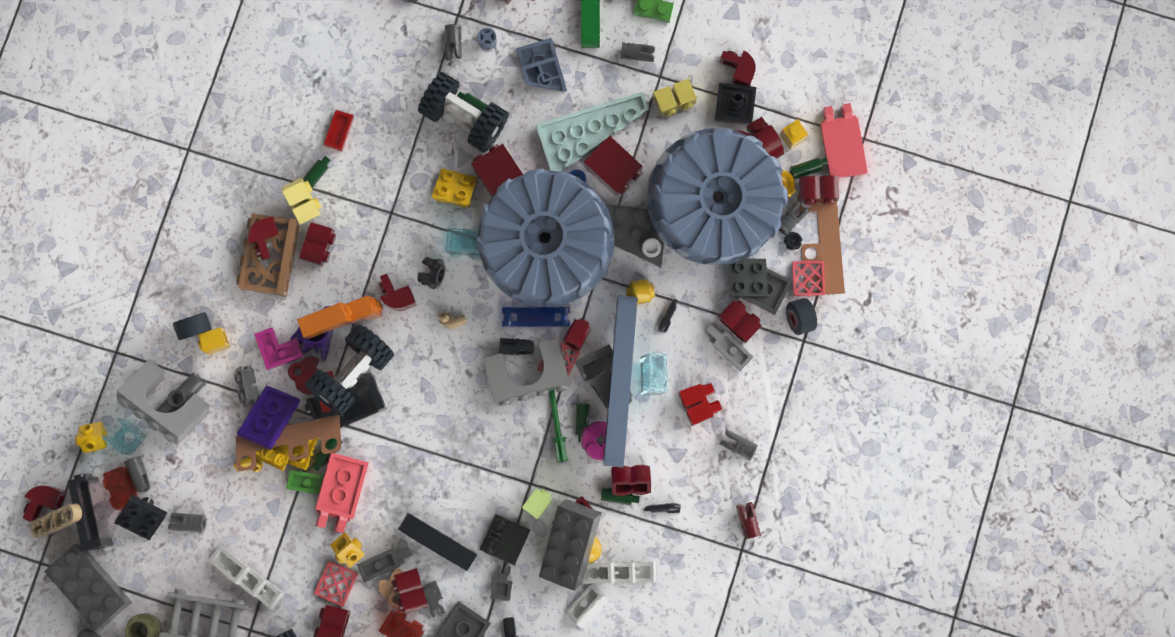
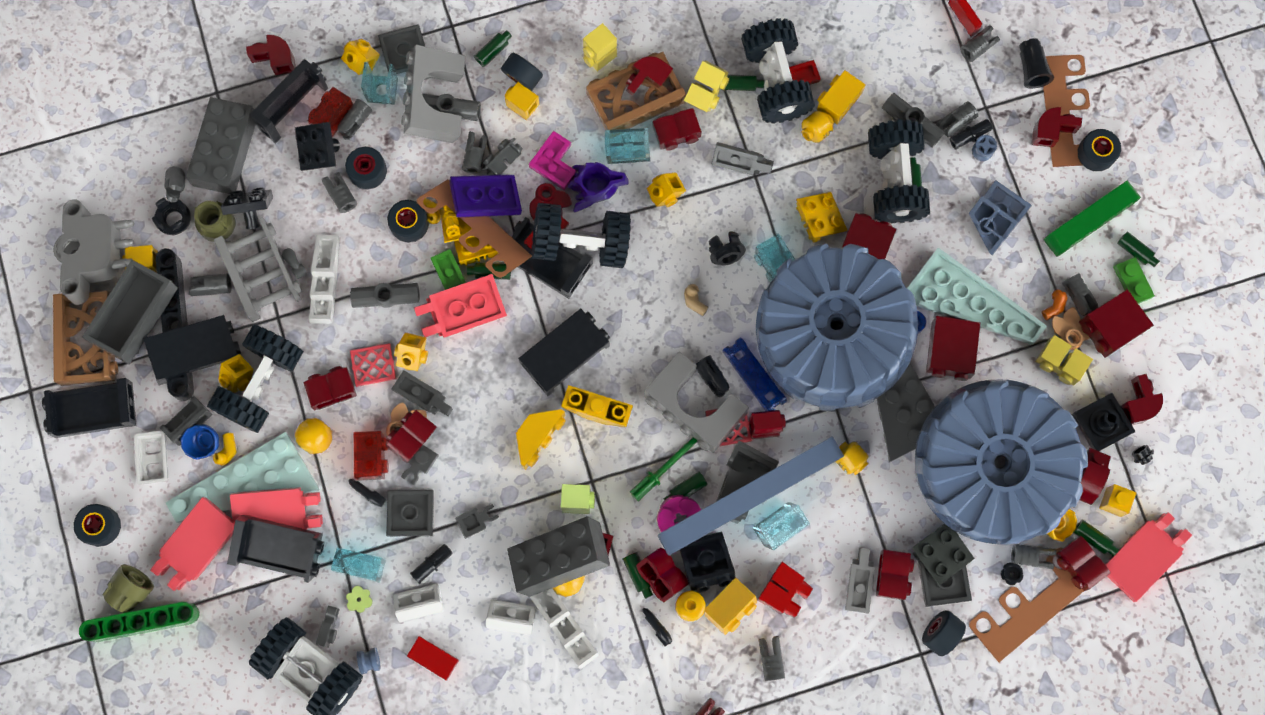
camera: 55 degrees right, 5 degrees down
(55, 519) = (262, 75): tan beam -> none
(104, 401) = (397, 44): none -> dark grey tile
(148, 597) = (247, 204): none -> black plate
(157, 334) = (492, 48): none -> dark green cylinder
(189, 492) = (370, 175): none -> black wheel
(215, 257) = (599, 47): none -> light yellow piece
(225, 592) = (297, 269): none -> dark grey arm
(231, 404) = (474, 155): none -> dark grey hinge
(240, 483) = (406, 213): none -> black wheel
(283, 551) = (370, 295): none -> dark grey piece
(304, 135) = (768, 46): none -> black plate
(304, 288) = (627, 145): none -> clear light blue brick
(340, 315) = (625, 191): orange arch -> none
(357, 283) = (666, 189): none -> yellow brick
(373, 215) = (740, 160): none -> hinge
(378, 111) = (841, 96): none -> yellow brick
(387, 143) = (817, 126): none -> yellow head
(396, 299) = (677, 236): dark red brick -> none
(419, 75) = (903, 111): none -> dark grey piece
(424, 438) = (564, 350): none -> black panel
(437, 541) = (475, 430): black slope -> none
(470, 40) = (971, 134): none -> black axle
(470, 500) = (537, 433): none -> yellow slope
(481, 444) = (596, 407): none -> yellow slope
(504, 539) = (521, 493): pearl dark grey hinge -> none
(634, 72) = (1059, 303): none -> orange arm
(645, 442) = (707, 563): none -> black plate
(651, 247) = (902, 438): white tile -> none
(656, 73) = (1069, 326): none -> light nougat plate
(665, 475) = (690, 606): none -> yellow head
(666, 319) = (842, 502): black piece -> none
(674, 44) = (1115, 323): none -> dark red brick
(685, 448) = (731, 607): none -> yellow brick
(775, 93) = (1143, 454): none -> black plate
(807, 263) = (1001, 604): coral window -> none

